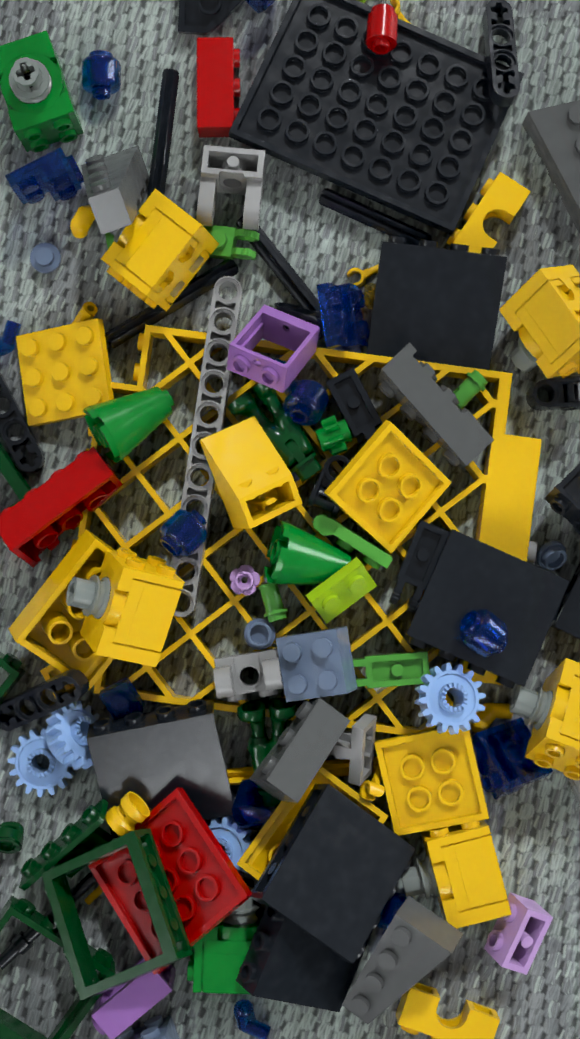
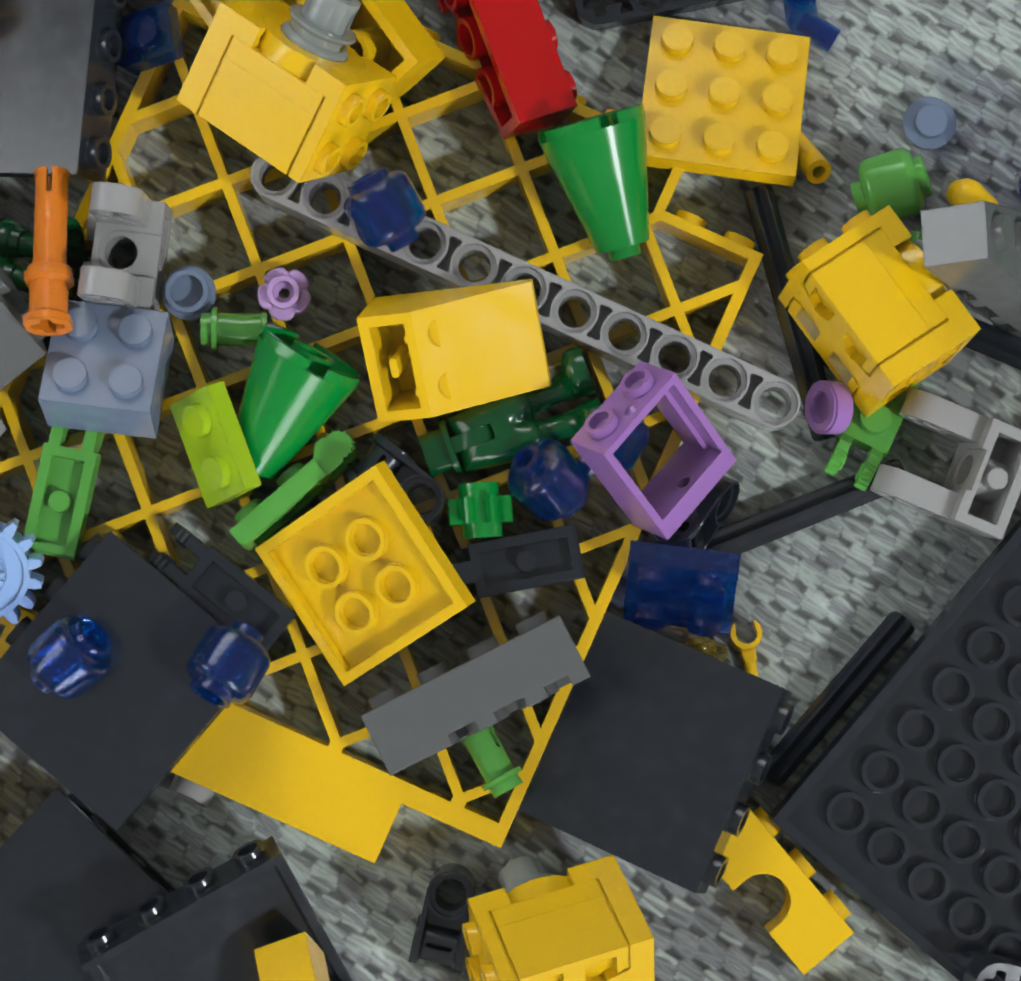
camera: 110 degrees right, 0 degrees up
(86, 267) = (892, 180): none -> bright green head
(219, 264) = (829, 407): none -> medium lavender tile
(275, 709) = (48, 274): none -> orange pin
(461, 544) = (228, 664): none -> clear blue head
(552, 555) = (177, 823): sand blue plate -> none

